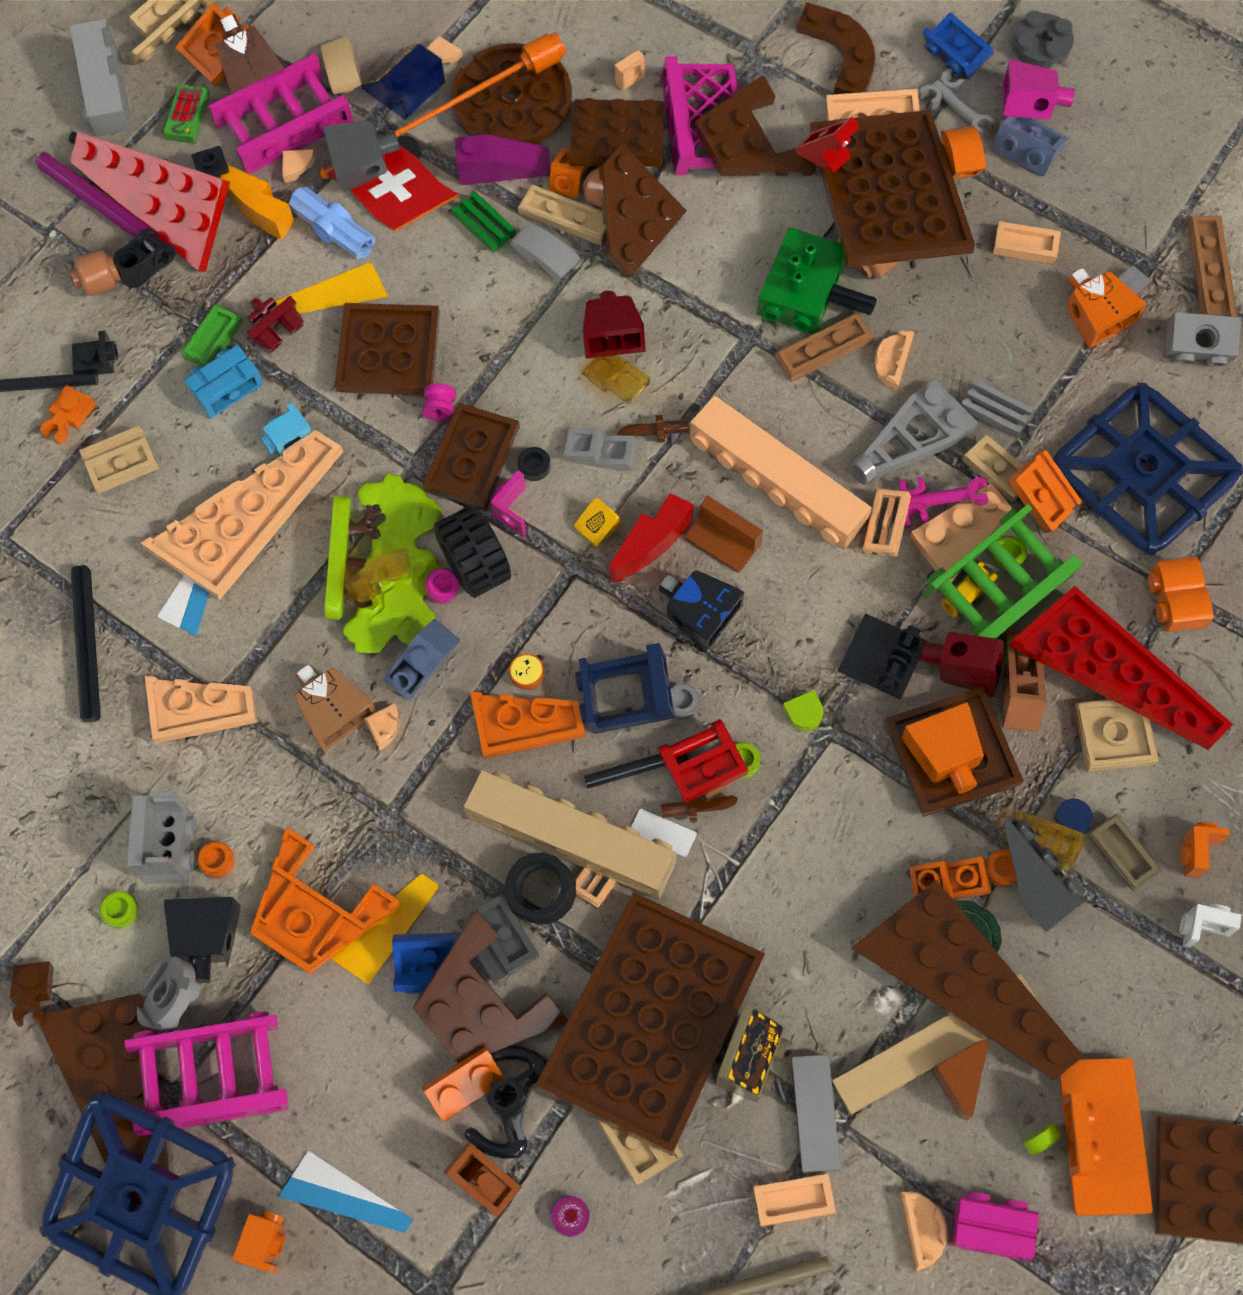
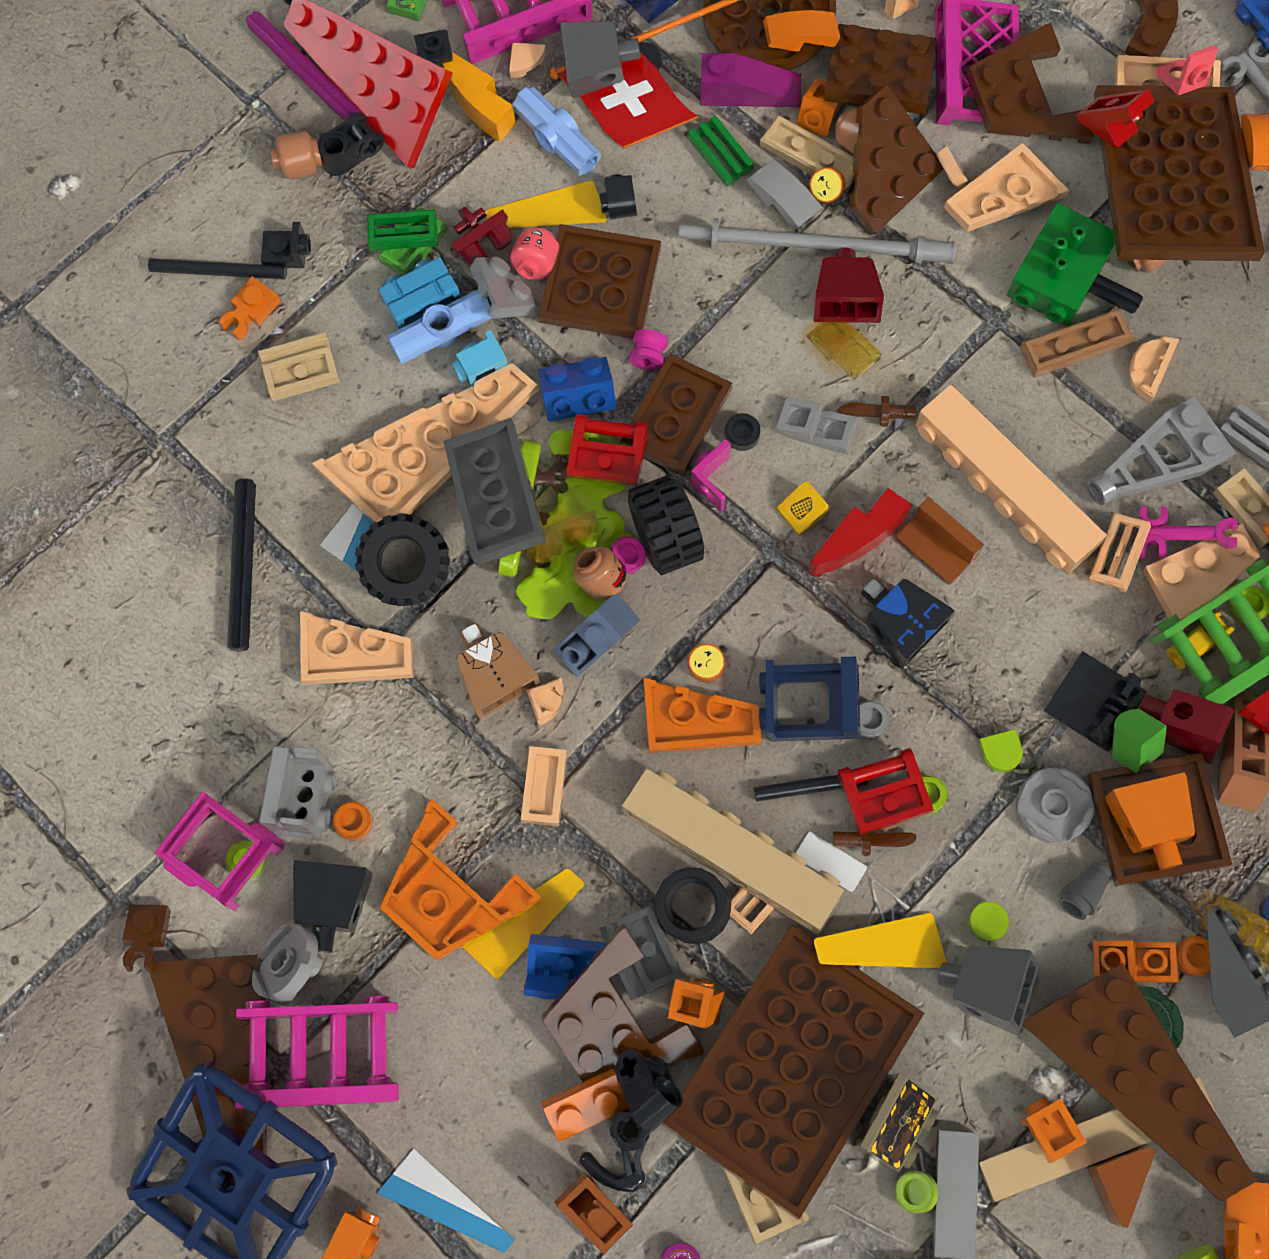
camera: 10 degrees right, 5 degrees up
(61, 885) = (263, 844): none -> dark pink piece
(200, 330) = (402, 235): none -> green tile
(212, 597) = (370, 560): none -> black tyre
(230, 417) = (421, 337): none -> light blue piece
(302, 368) = (505, 291): none -> light grey wing
(311, 543) = (494, 492): none -> dark grey plate
(324, 331) = (534, 253): none -> coral head
(378, 445) = (577, 388): none -> blue bracket
(390, 802) = (544, 786): none -> light nougat tile
(395, 272) = (619, 197): none -> black plate
(411, 504) = (603, 460): none -> red plate
(417, 602) = (599, 573): none -> nougat head
(517, 1056) = (647, 1088): none -> black piece
(535, 106) = (794, 28): none -> orange slope
(553, 973) = (696, 1002): none -> orange brick
(583, 238) = (827, 184): none -> light yellow tile
(670, 284) = (917, 249): none -> light grey bar
(694, 210) = (953, 168): none -> light nougat tile
(730, 896) = (896, 943): none -> yellow sticker
(742, 223) = (1004, 190): none -> light nougat wing
(779, 1116) = (916, 1192): none -> lime tile
(813, 864) = (988, 921): none -> lime tile
(822, 917) = (993, 984): none -> dark grey torso
(859, 753) = (1054, 805): none -> light grey tile
(893, 99) = (1194, 71): none -> coral bracket
(894, 1038) = (1053, 1128): none -> orange bracket
(895, 825) = (1085, 891): none -> dark grey cone
(923, 682) = (1137, 739): none -> bright green piece

